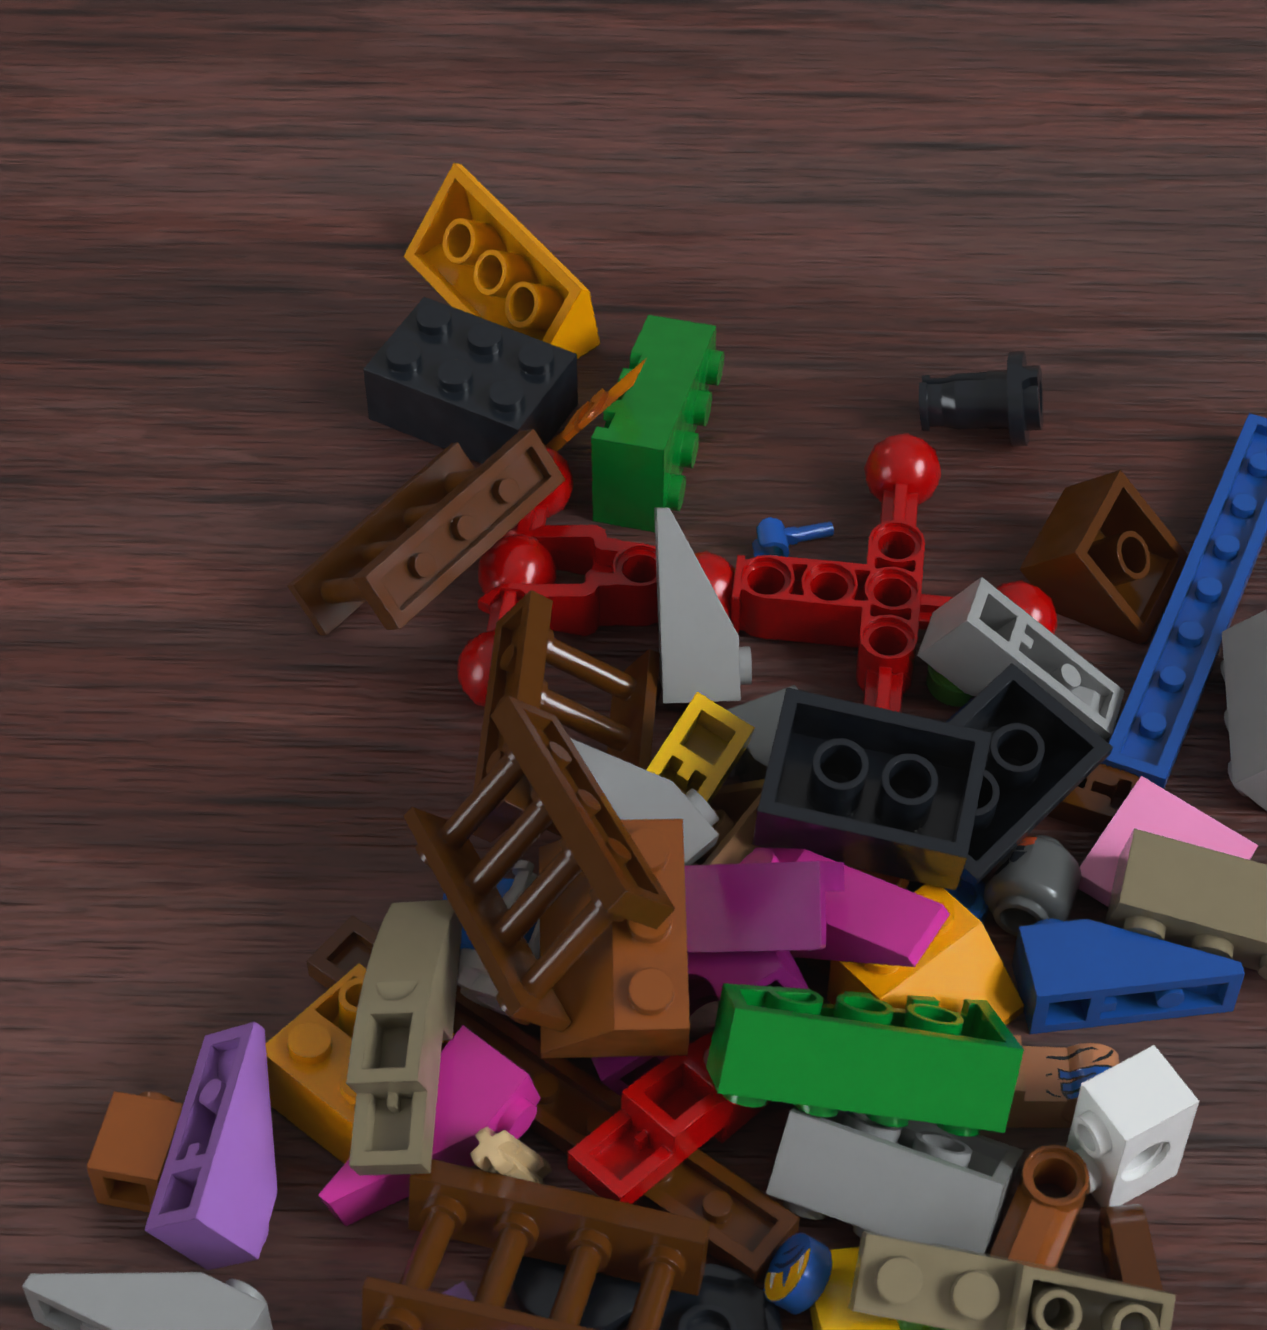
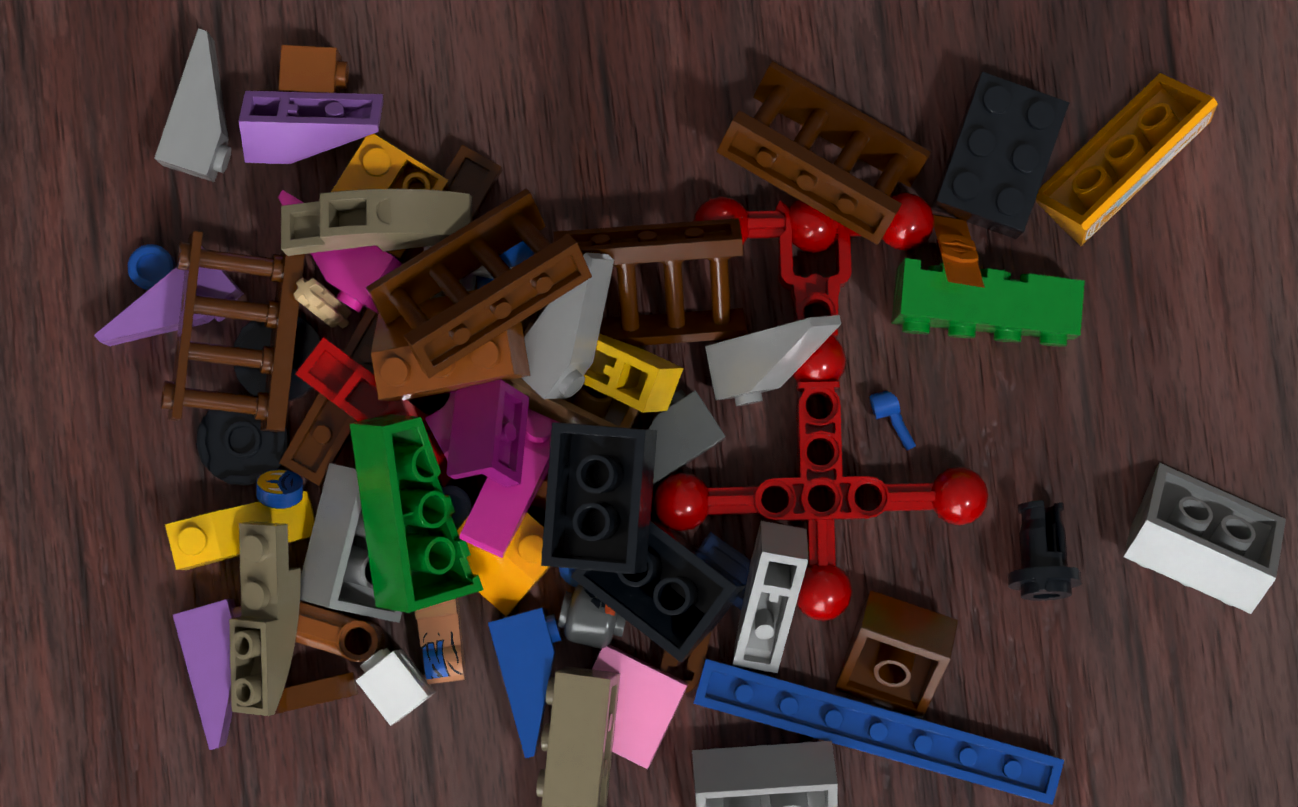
camera: 80 degrees right, 35 degrees up
(982, 264) = (1206, 539): none -> light grey slope

